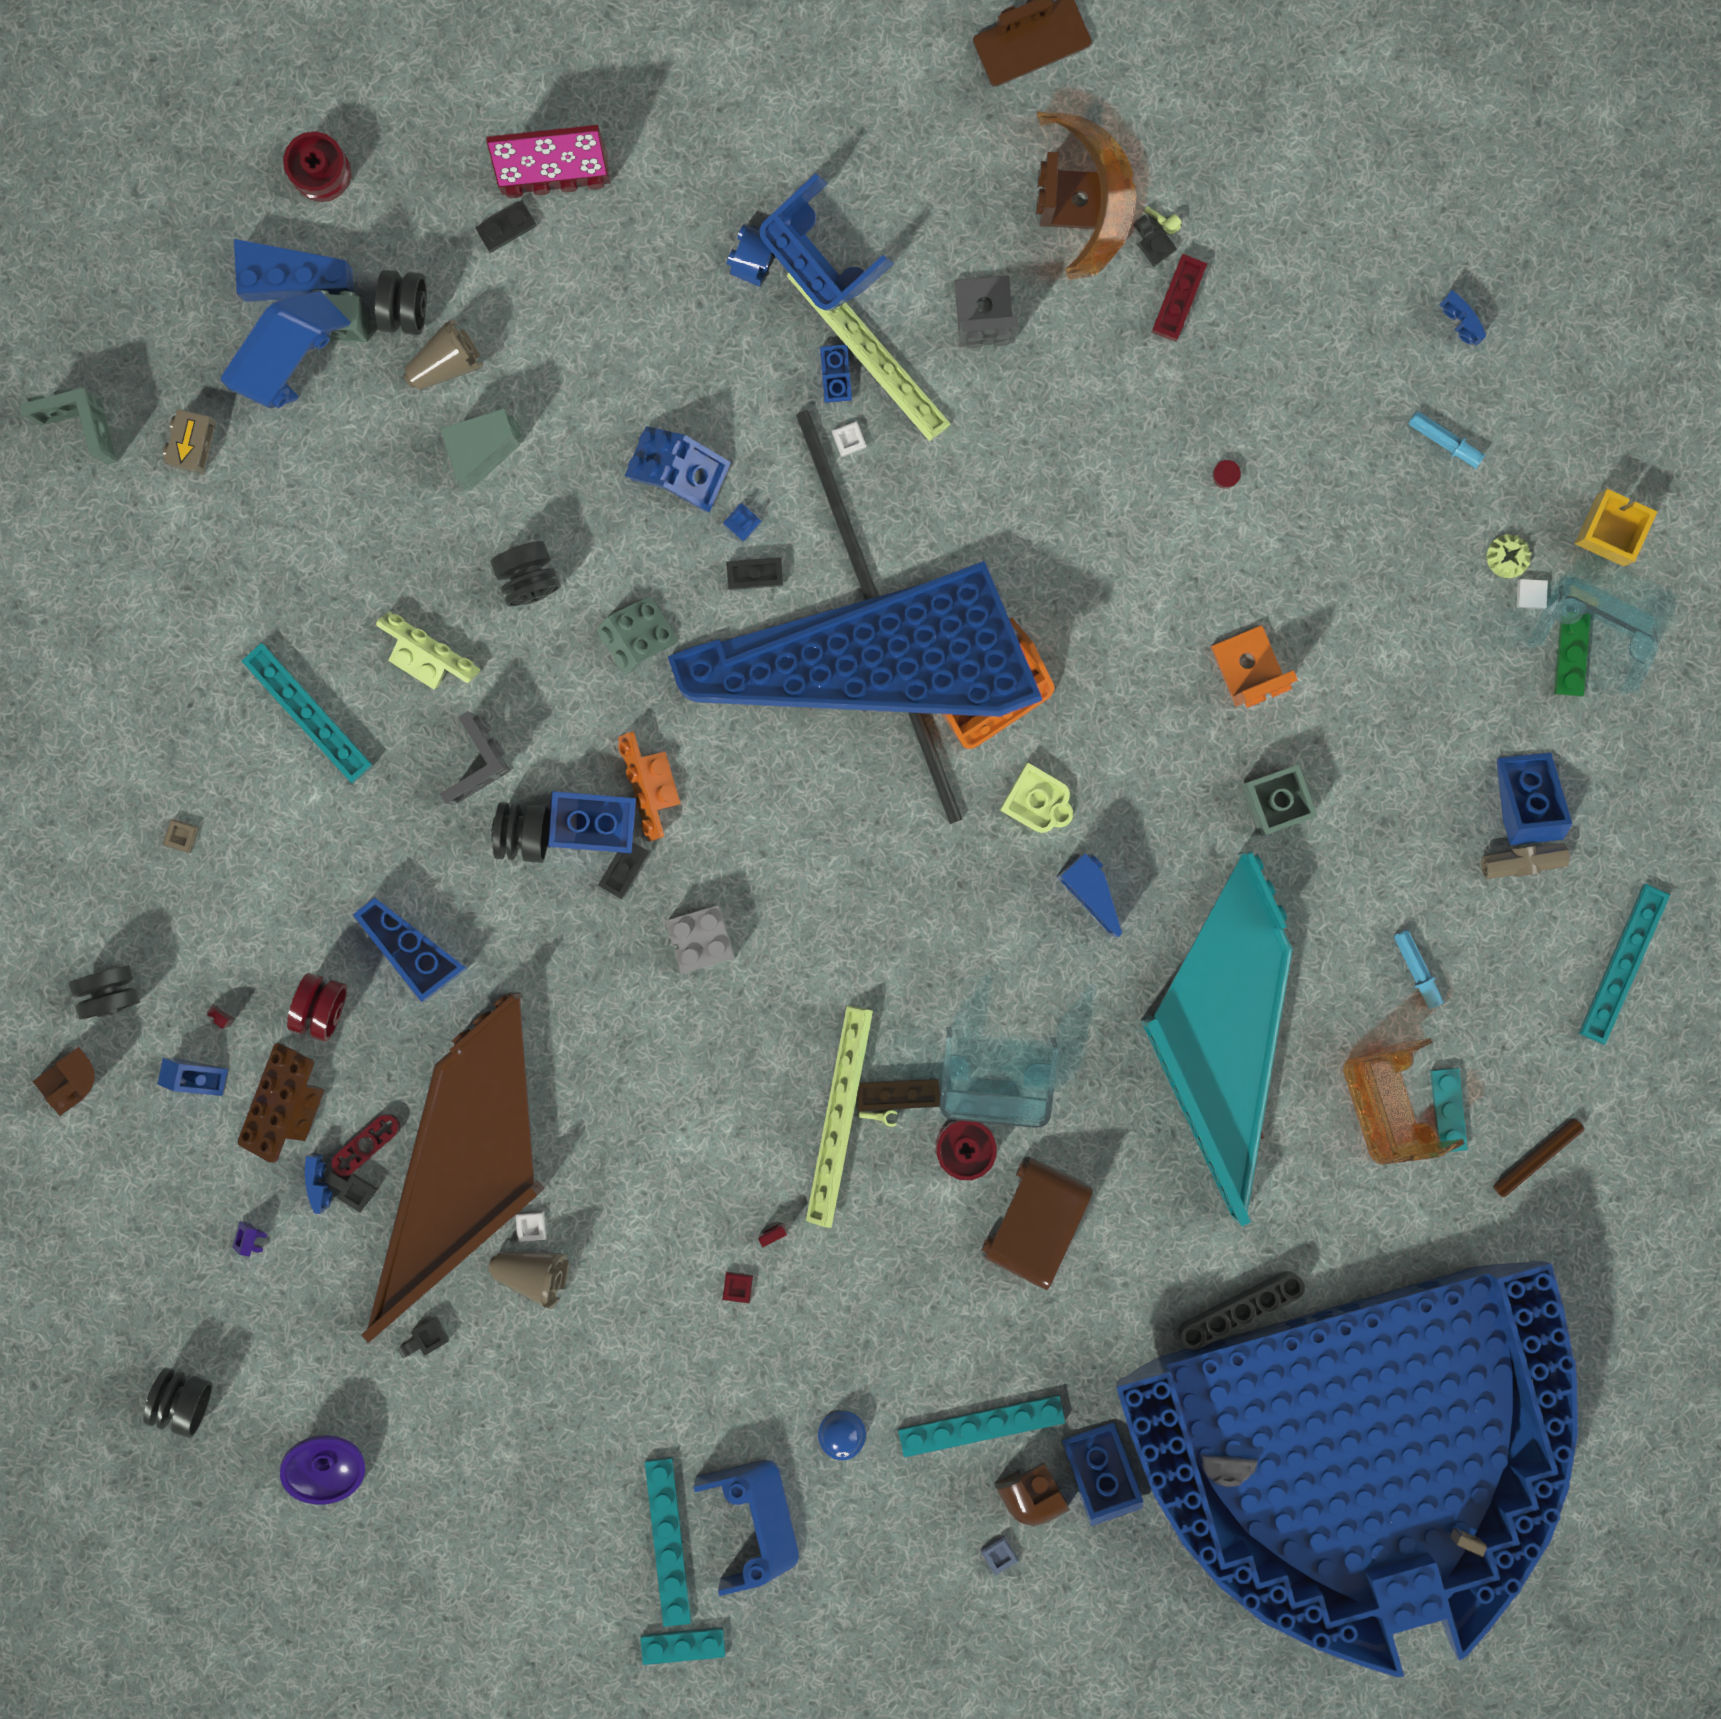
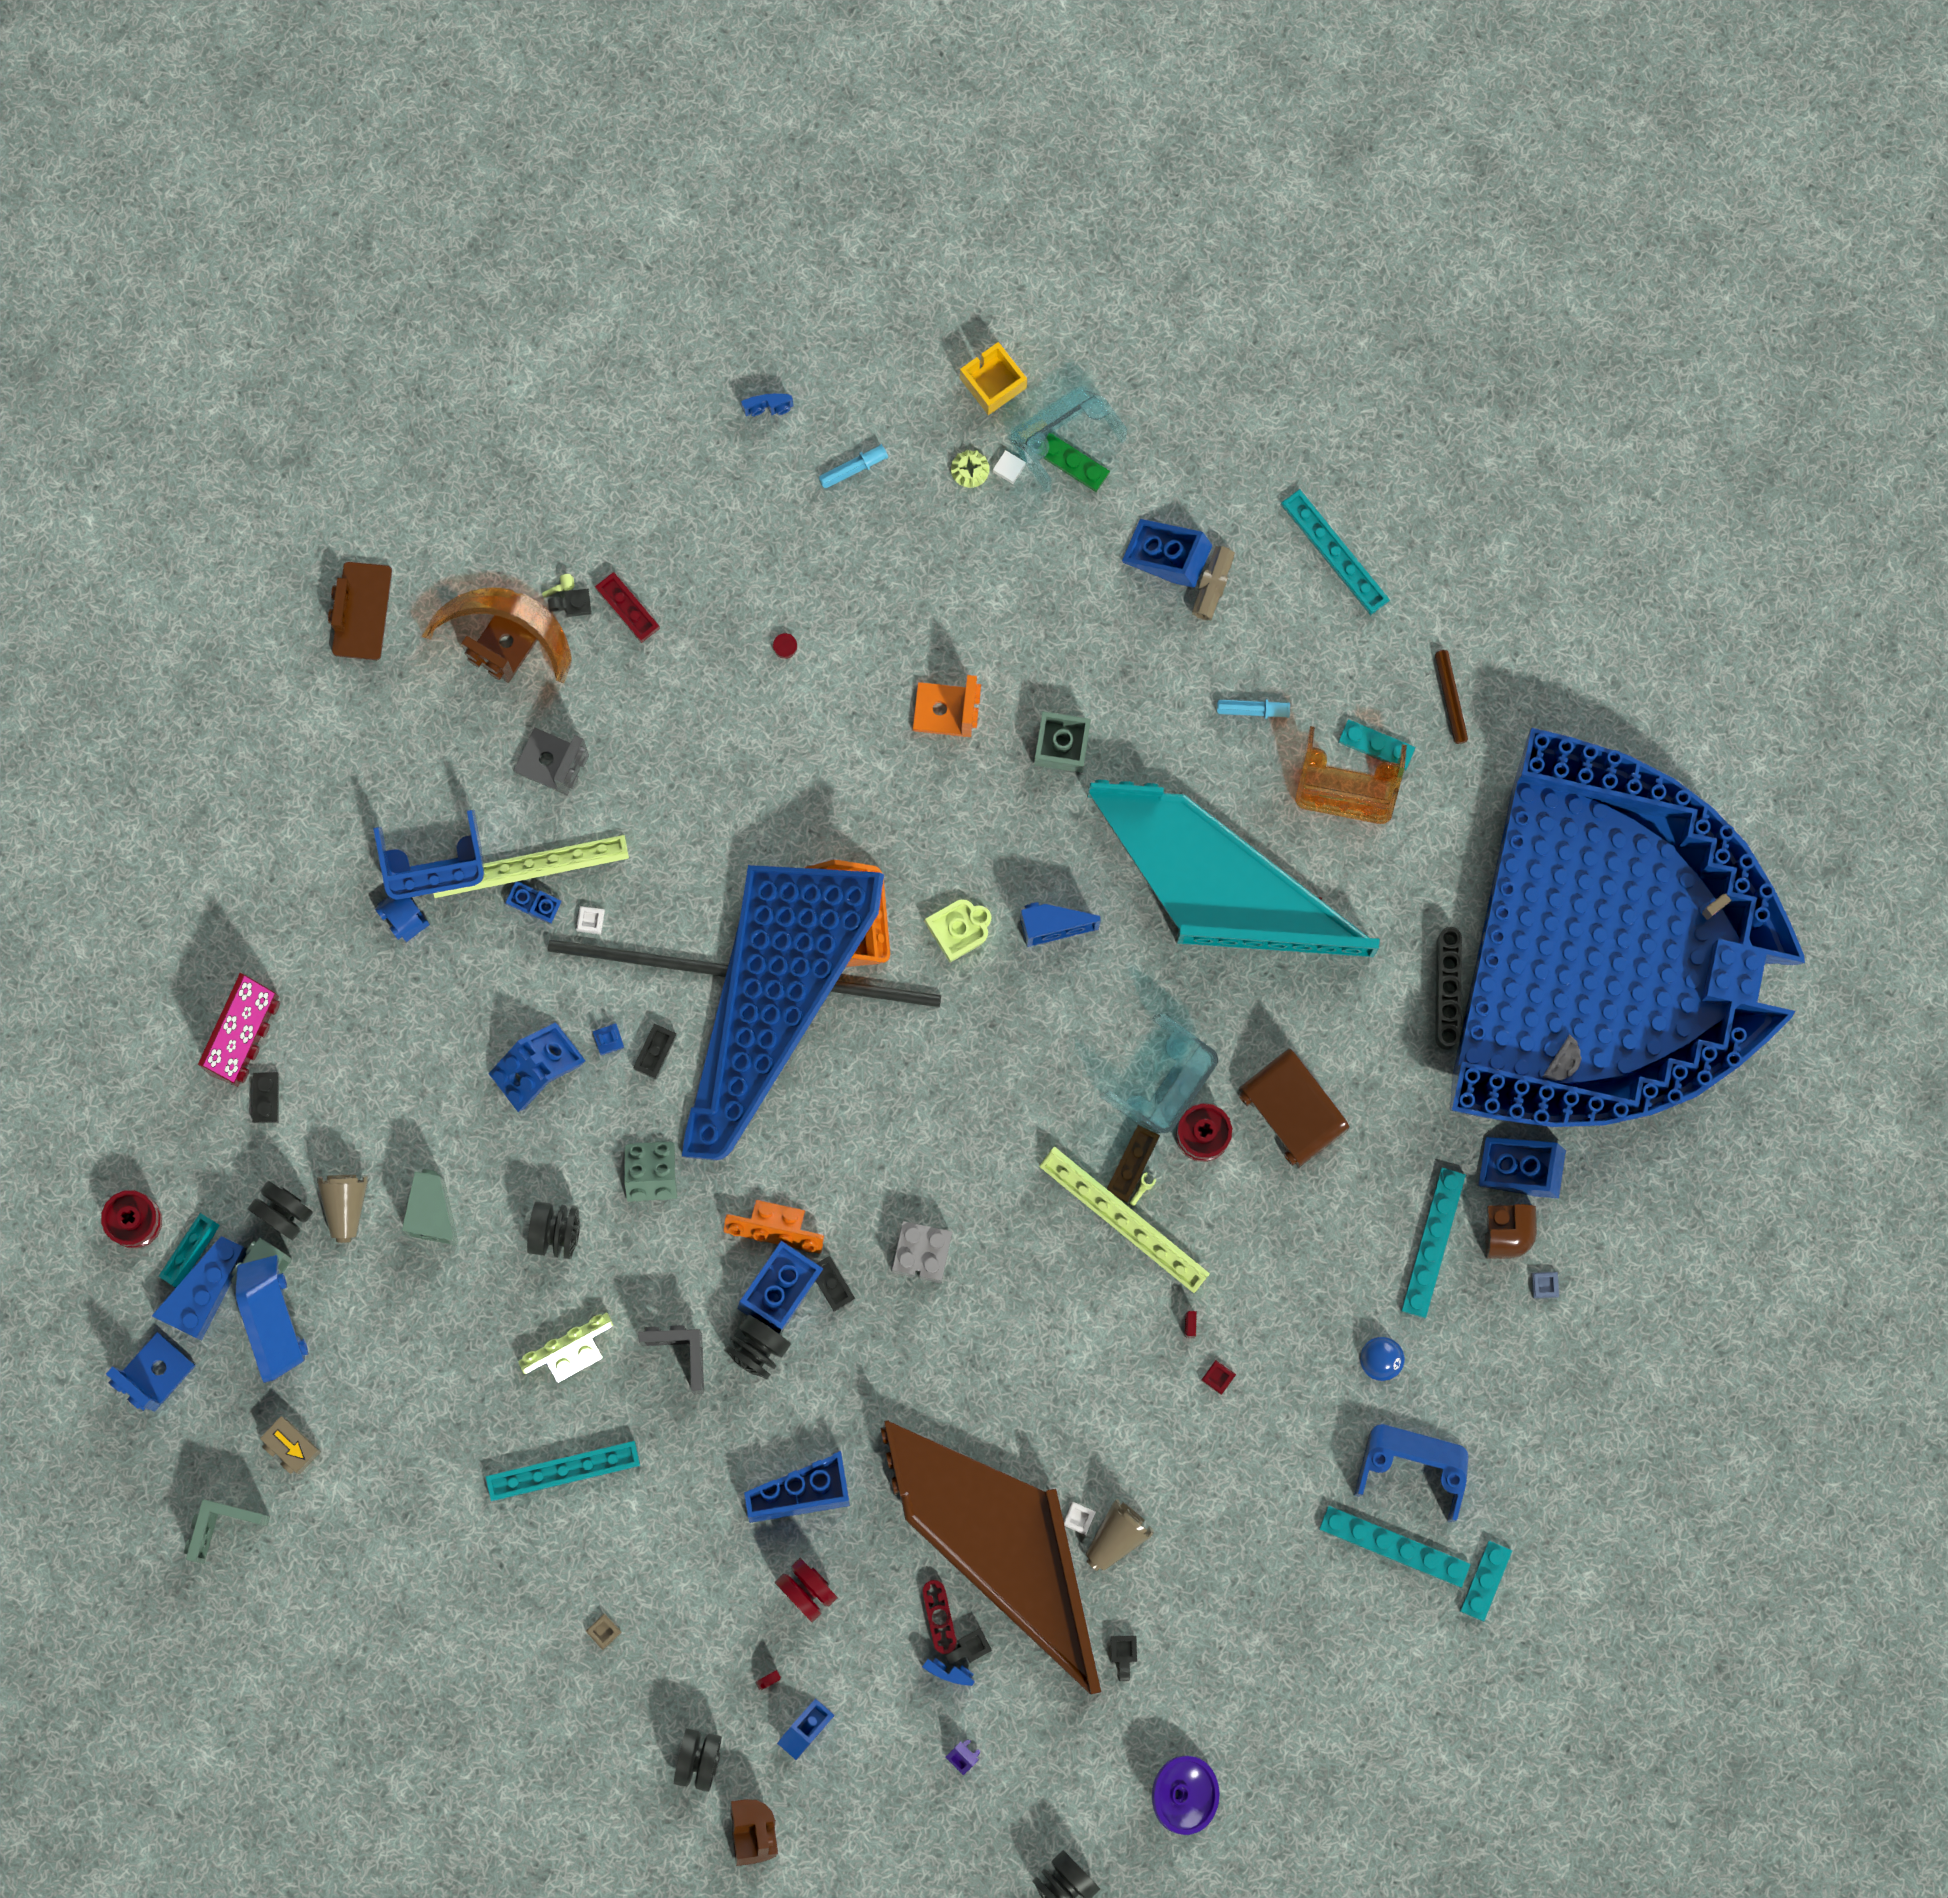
camera: 60 degrees left, 10 degrees down
(167, 267) = (139, 1380): none -> blue bracket
(282, 1104) = (867, 1667): reddish brown bracket -> none
(320, 239) = (189, 1250): none -> teal plate

